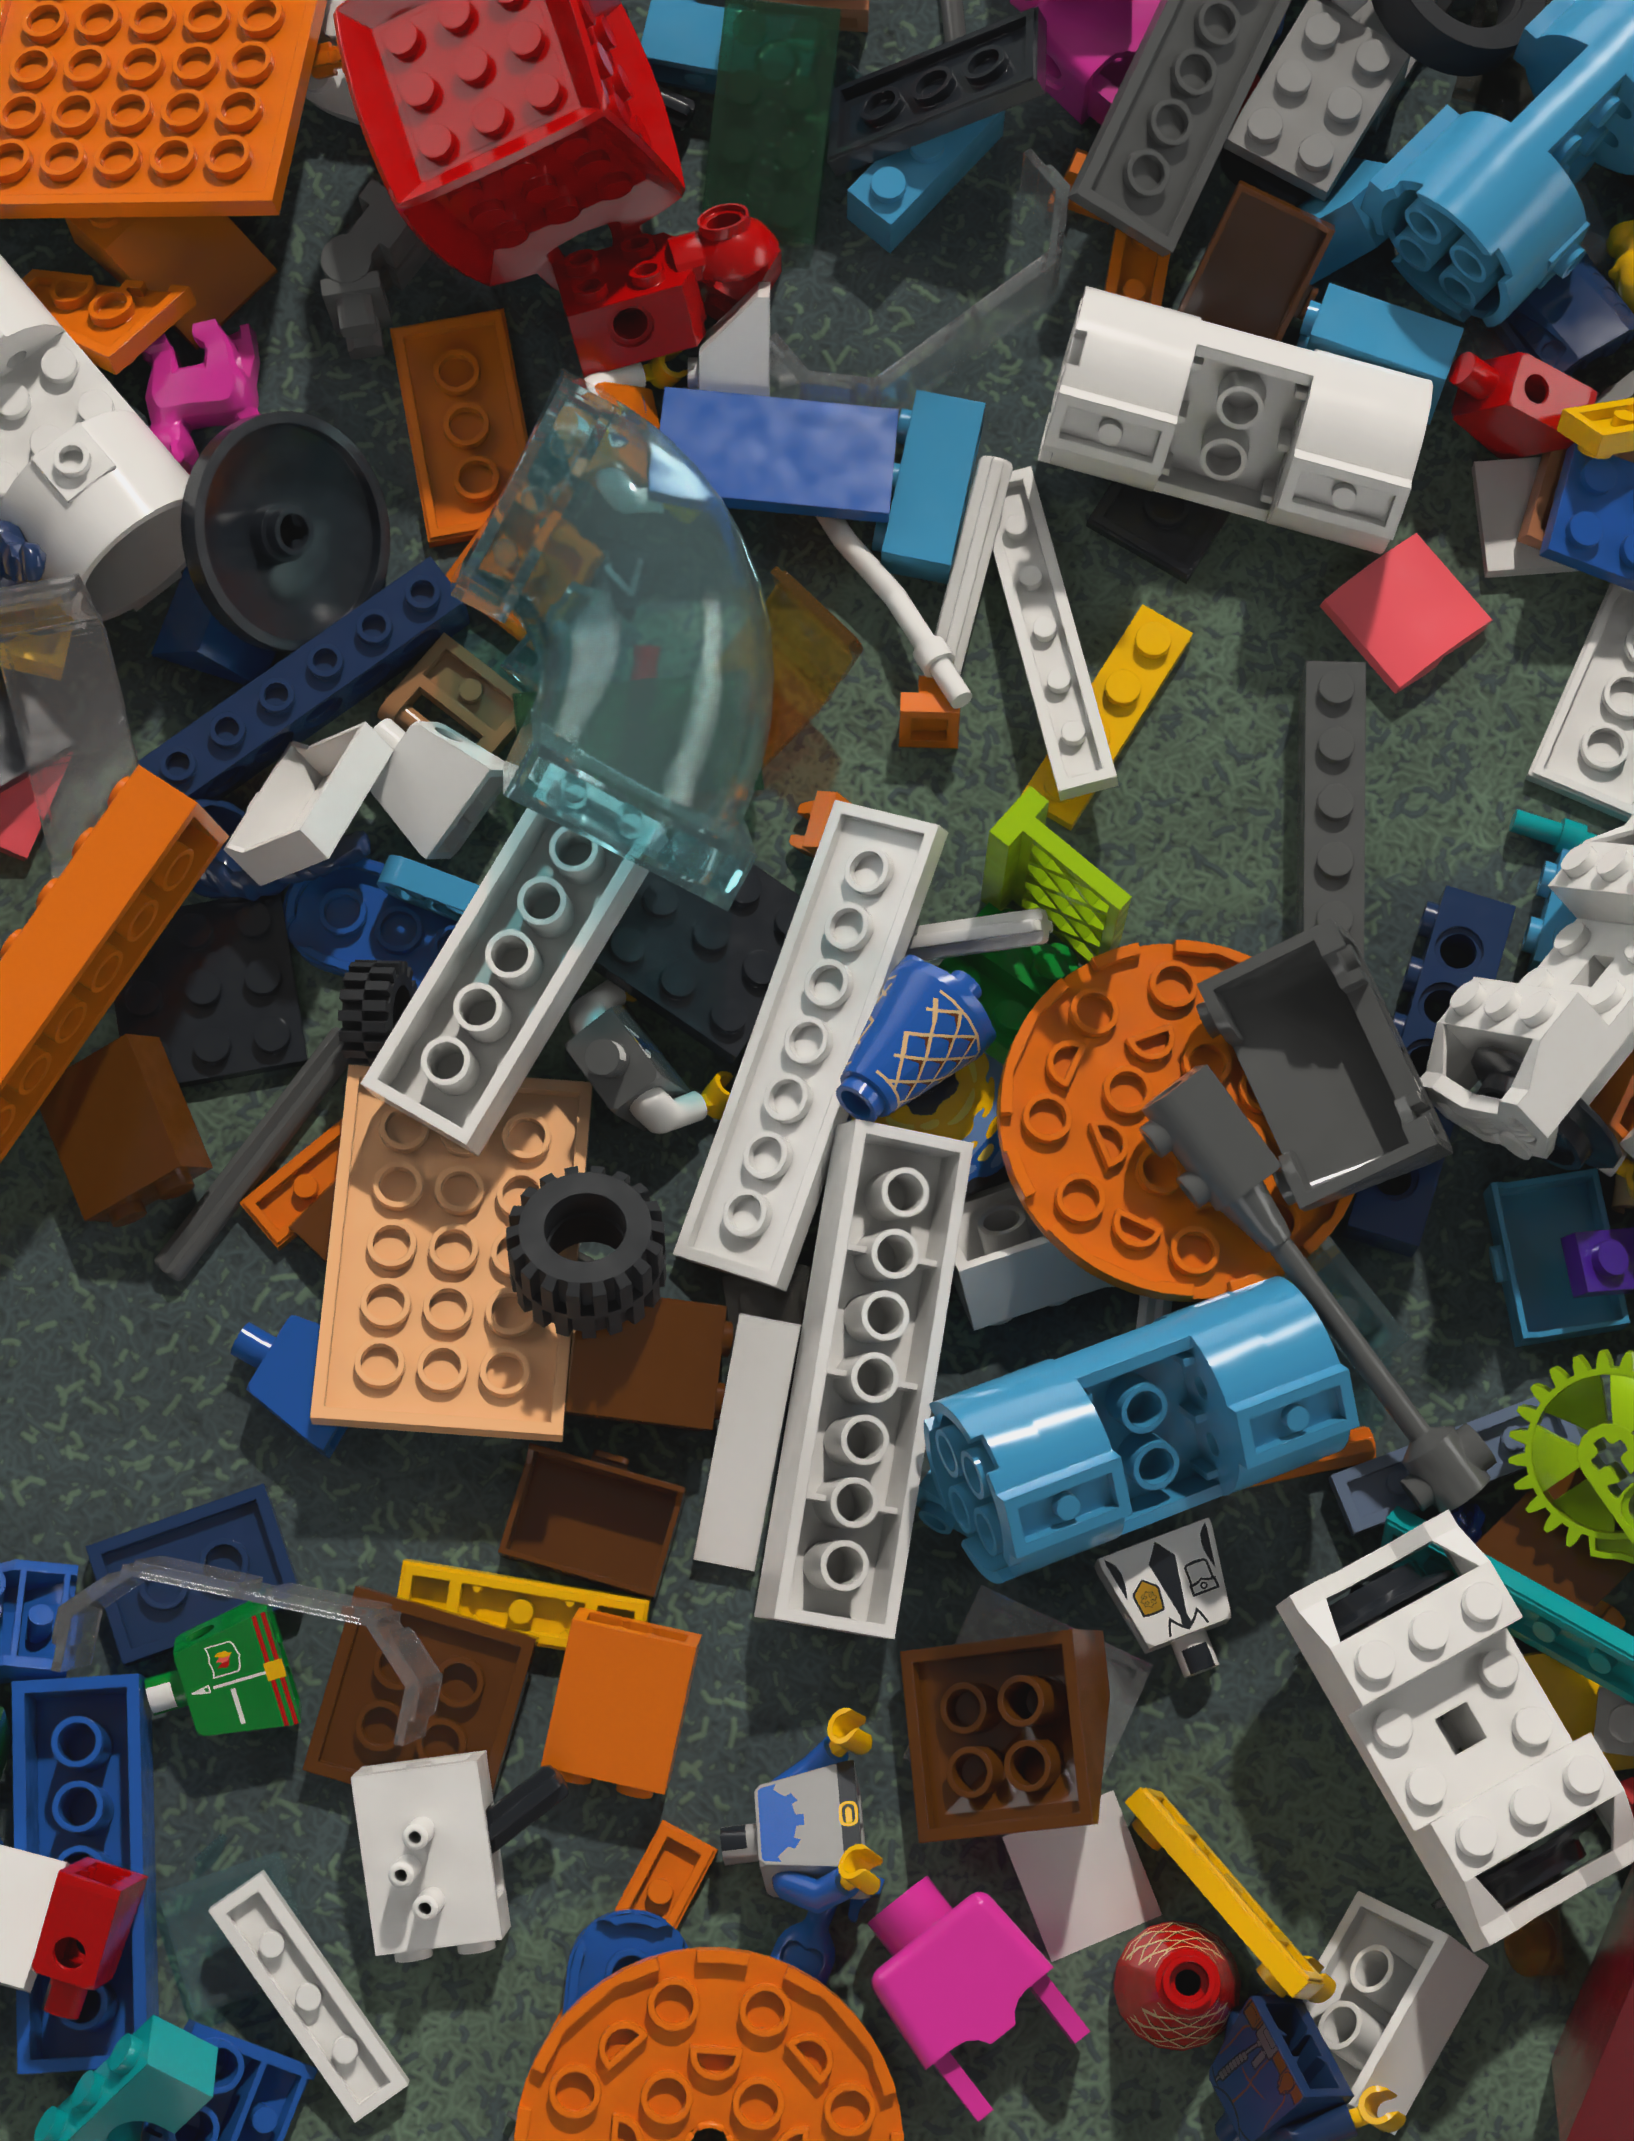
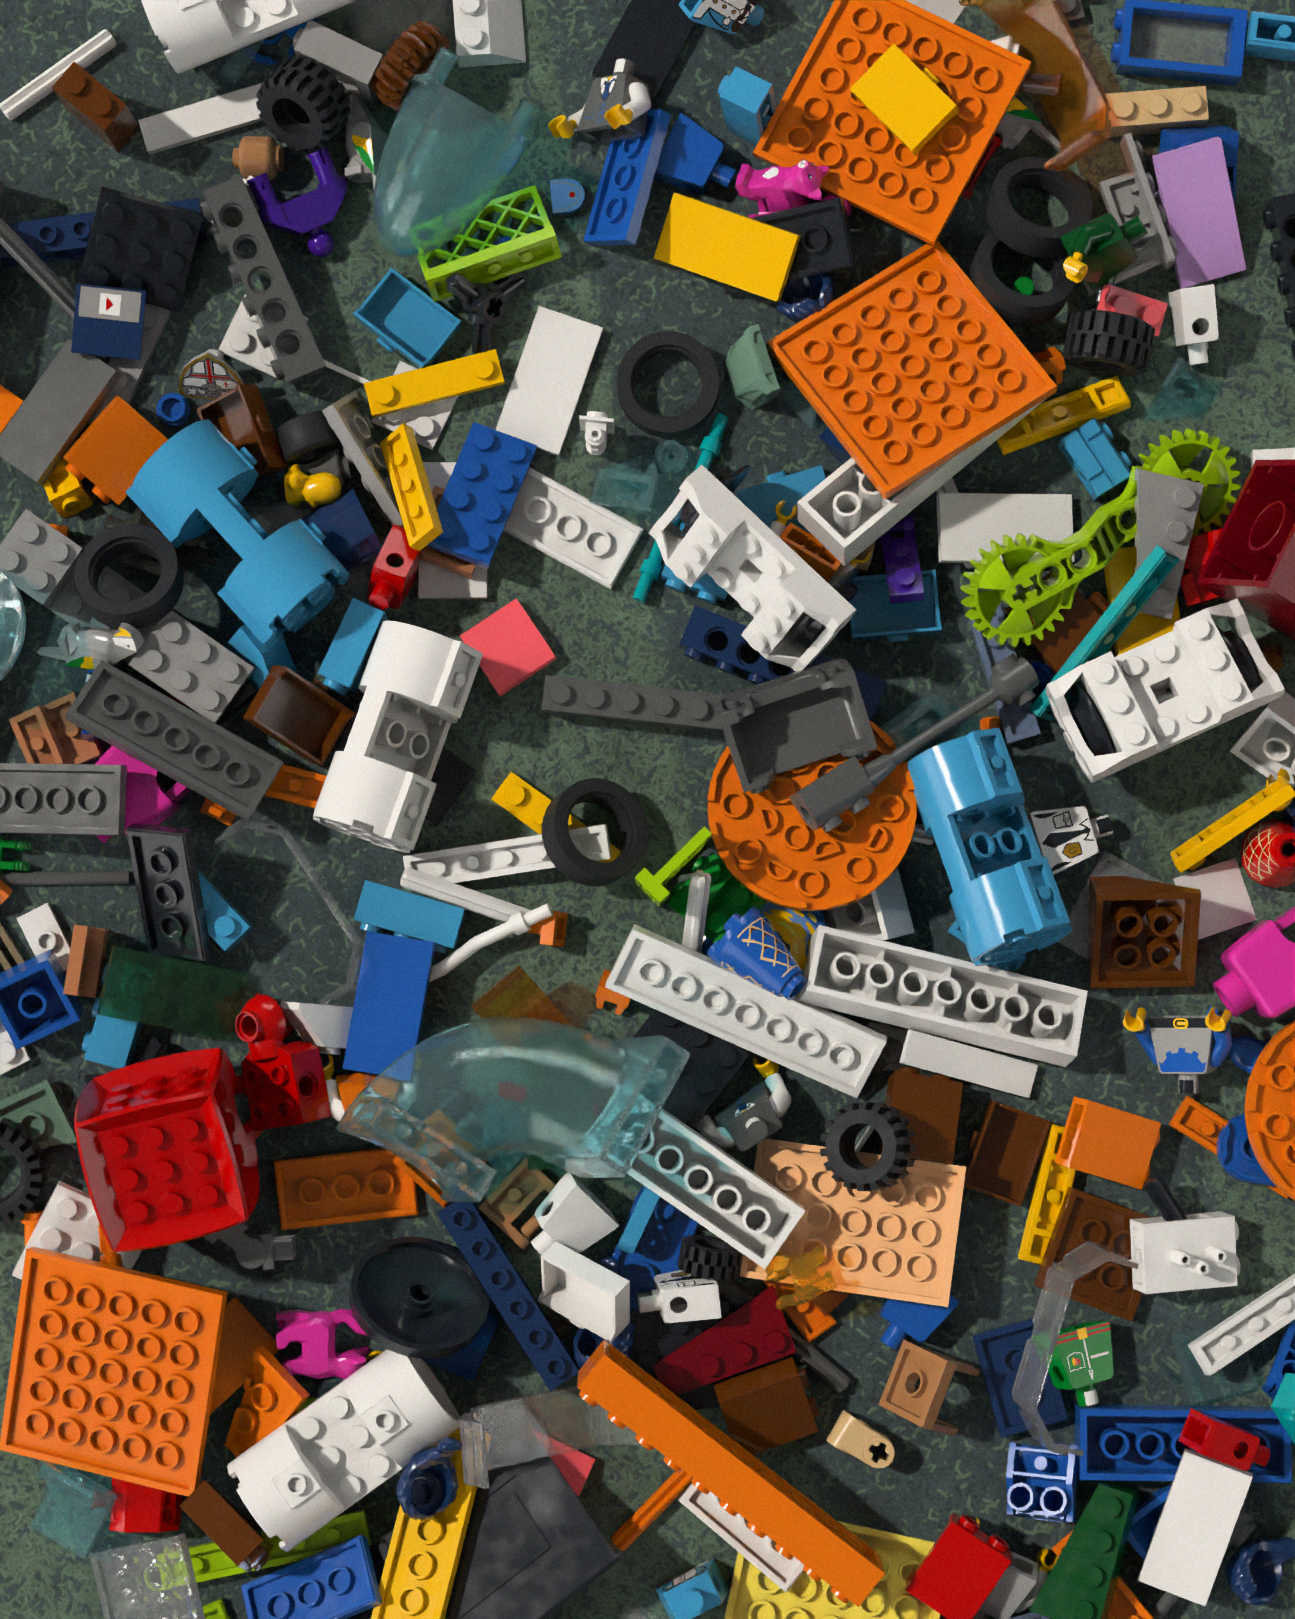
camera: 85 degrees left, 10 degrees up
(77, 1297) = (856, 1438): none -> tan piece
(174, 1385) = (935, 1376): none -> medium nougat hose
(231, 1068) = (736, 1343): none -> dark red wing
(304, 966) = (681, 1298): none -> white torso
(353, 1164) = (806, 1280): none -> clear yellow animal
(1171, 771) = (626, 812): none -> black tyre

